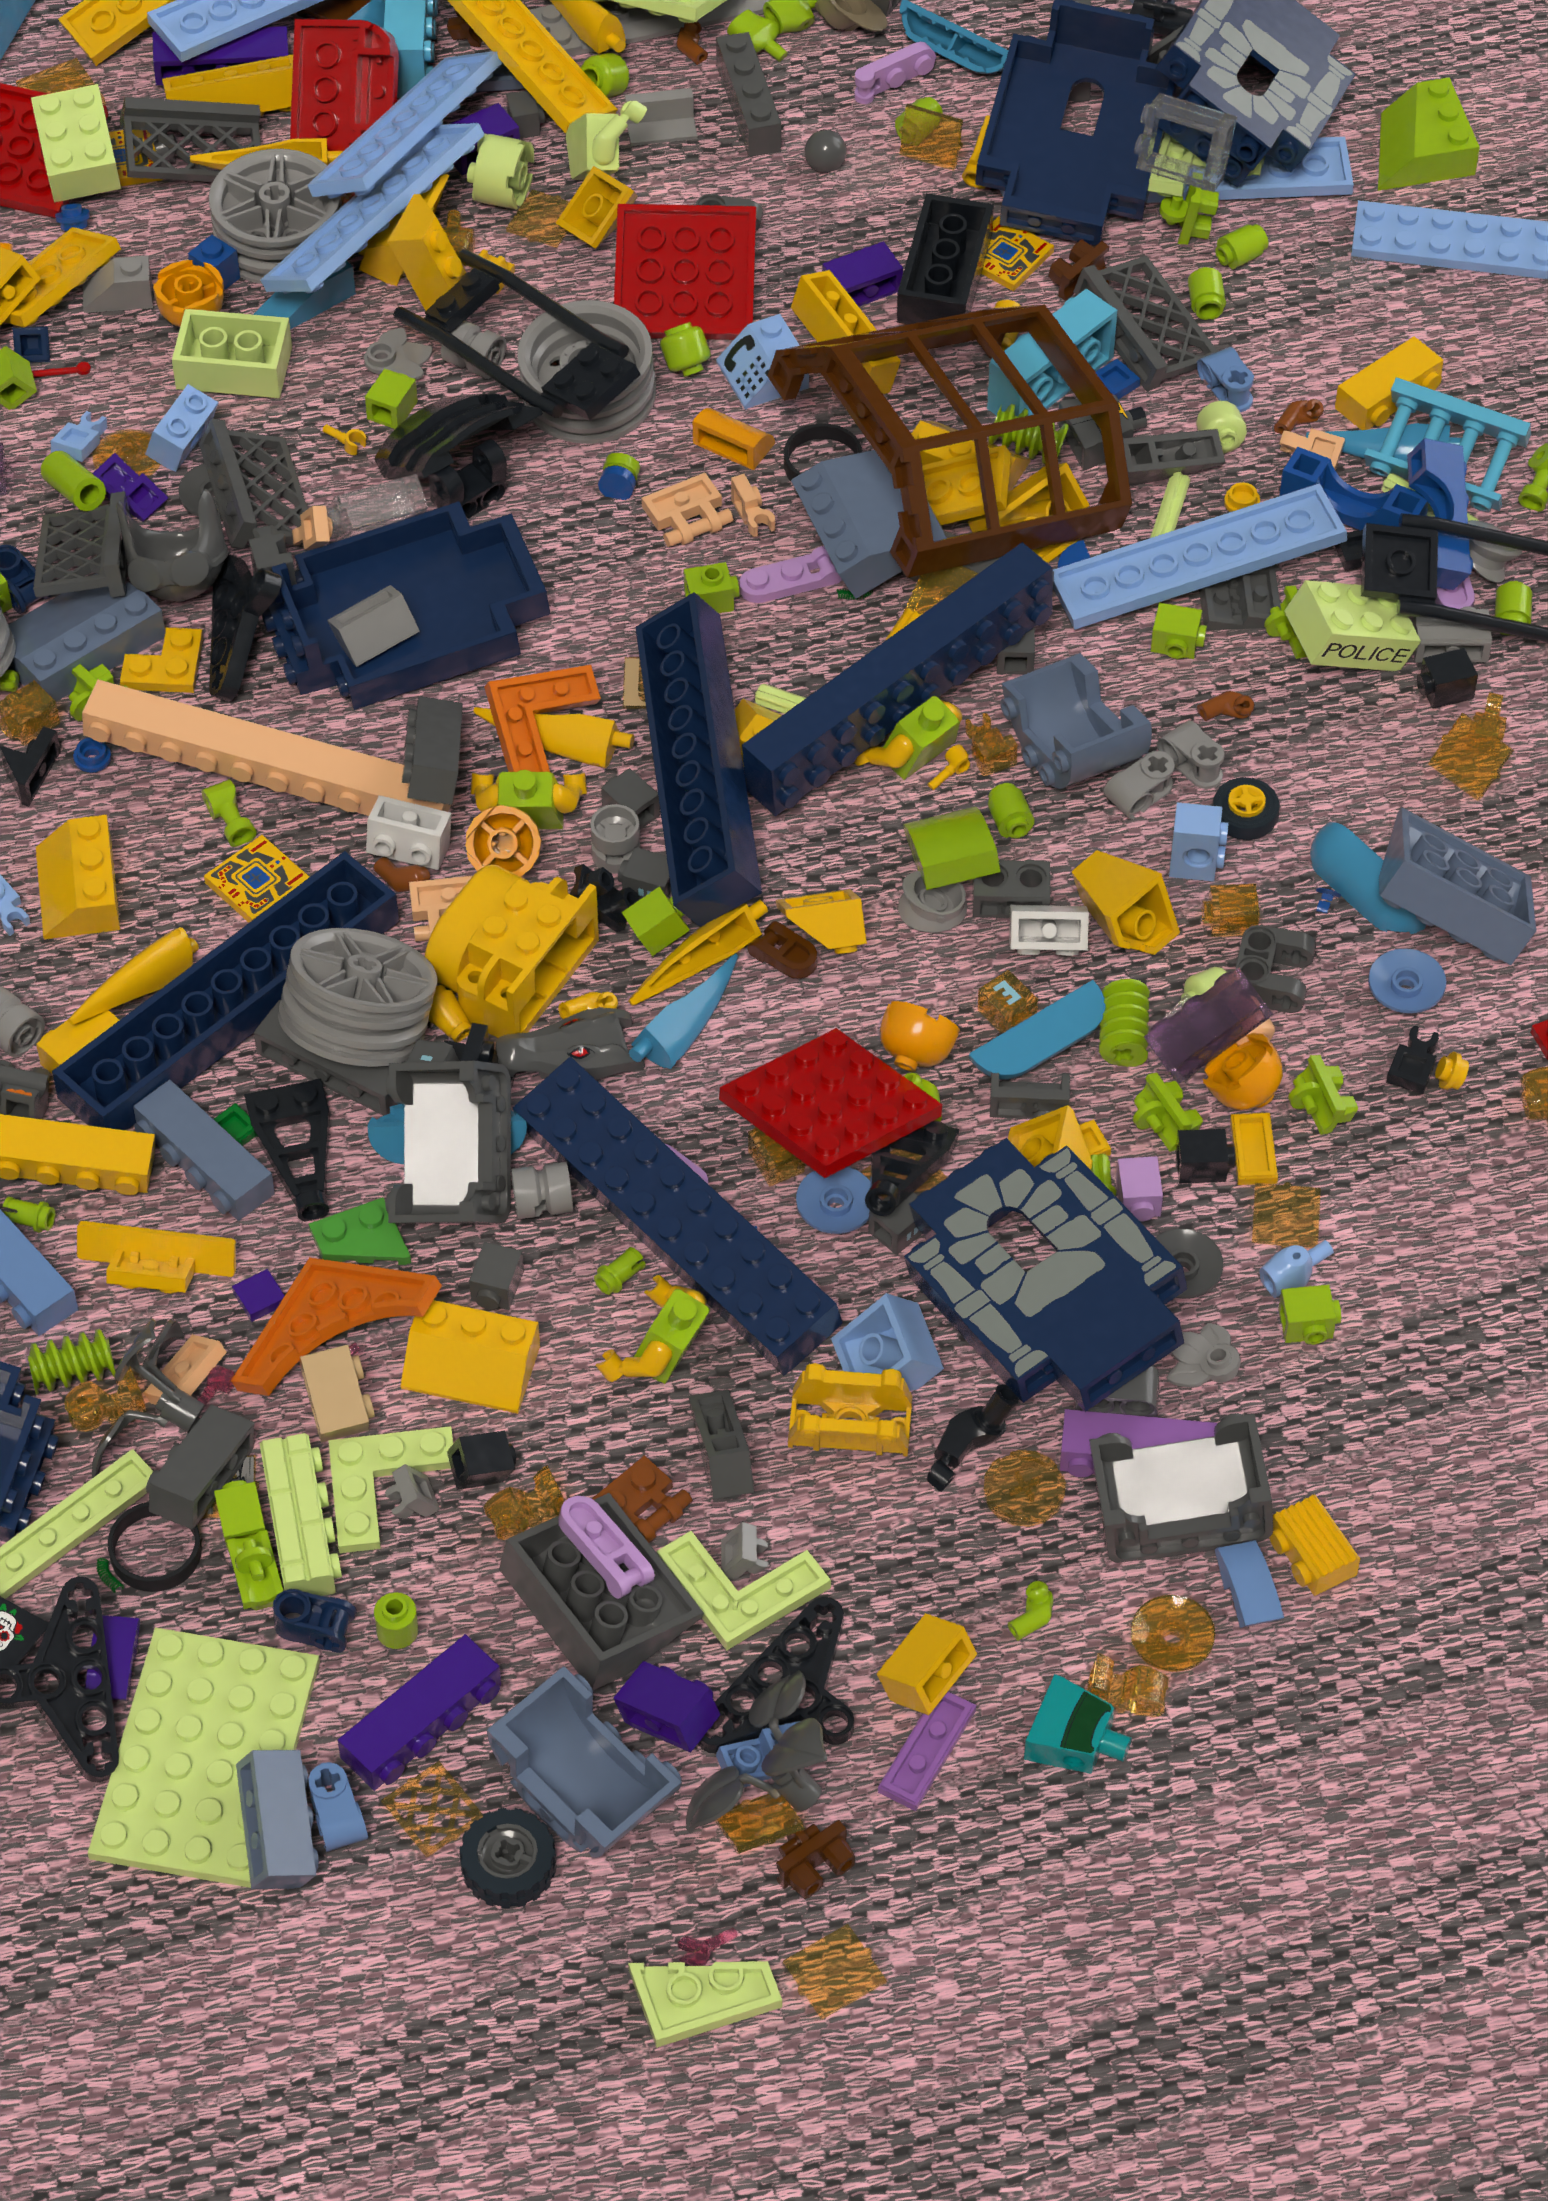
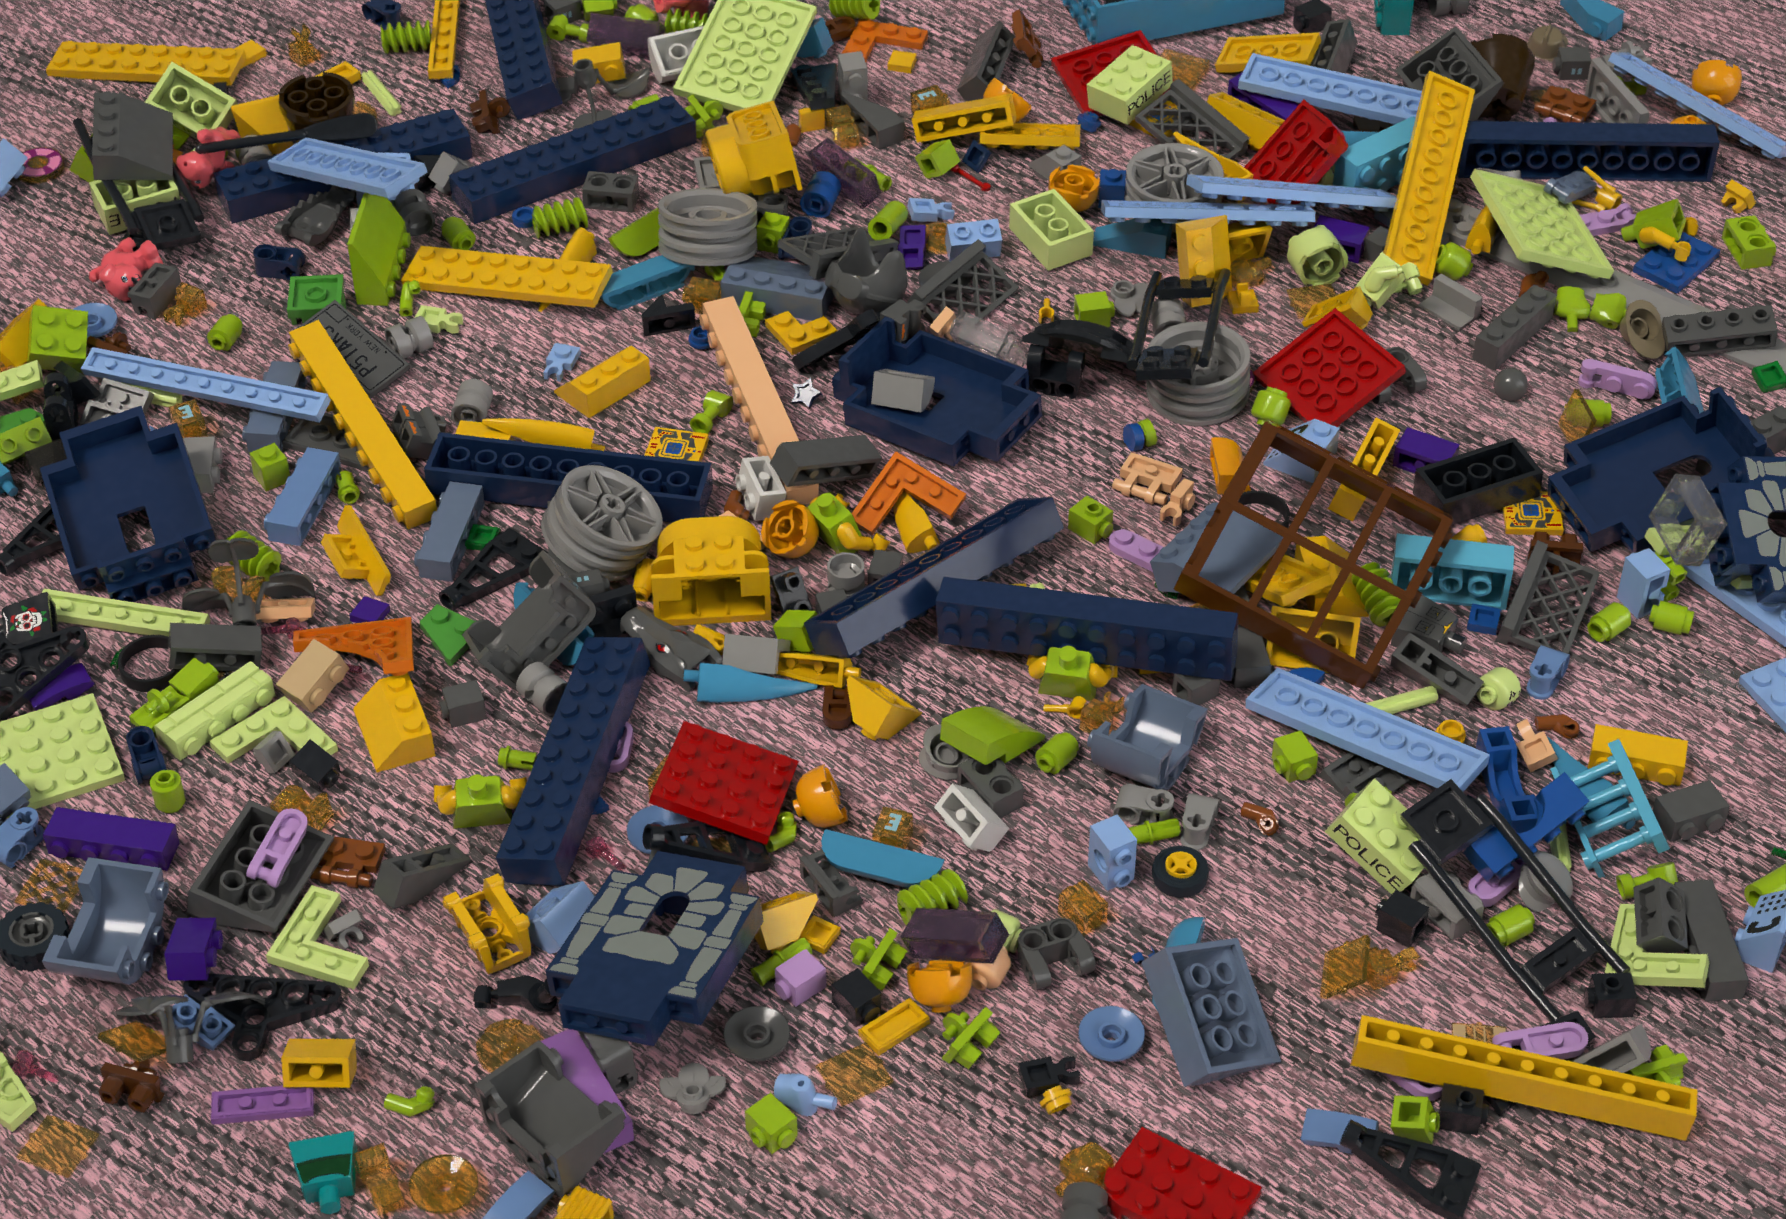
camera: 55 degrees right, 10 degrees down
(278, 713) = (805, 393): none -> piece
(650, 978) = (753, 653): none -> light grey panel
(811, 1265) = (597, 847): none -> clear pink hand
(1127, 902) = (1024, 847): yellow slope -> none
(1178, 792) = (1156, 831): none -> lime axle
(1192, 234) = (1642, 582): none -> light blue brick
(1491, 383) = (1691, 811): none -> dark grey brick

